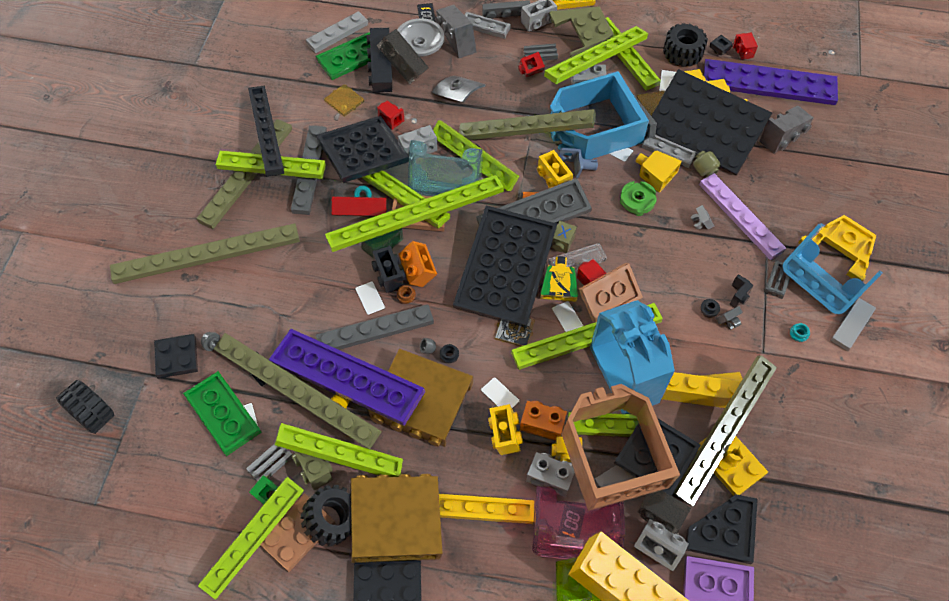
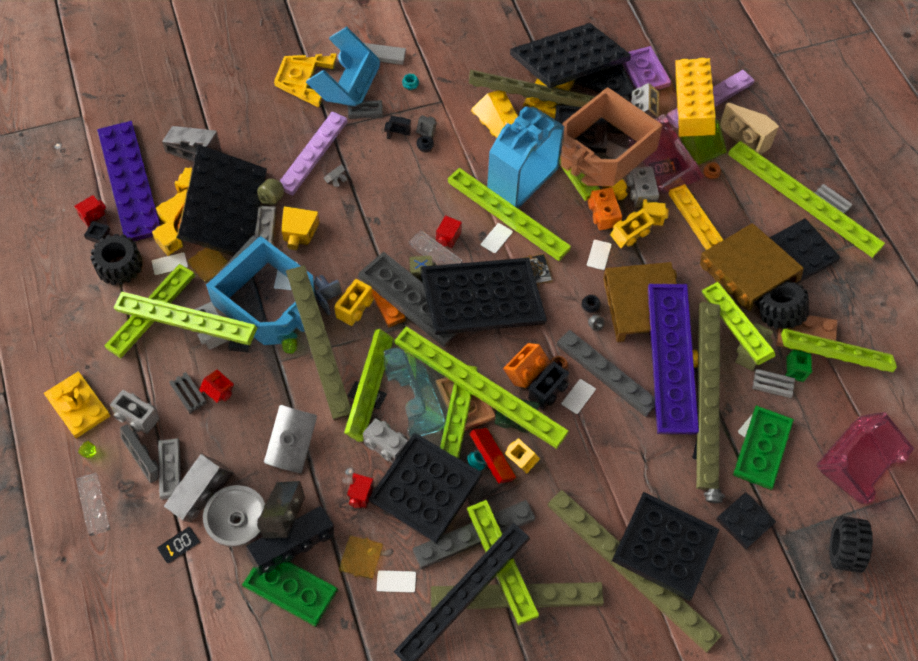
camera: 120 degrees left, 0 degrees up
(148, 483) = (864, 455): none -> clear pink windscreen
(199, 278) = (666, 546): none -> black plate
(312, 112) = (396, 581): none -> white sticker
(337, 32) = (261, 627): light grey plate -> none
(342, 219) = (529, 458): none -> yellow brick
(515, 467) = (657, 211): none -> yellow brick
(541, 563) = (715, 168): none -> dark orange plate
(560, 282) = (473, 247): torso -> none
(588, 23) = (138, 348): olive wing -> none
(610, 291) = (460, 208): nougat plate -> none
(635, 205) = (341, 240): bright green plate -> none
(769, 501) = (570, 55): none -> black plate

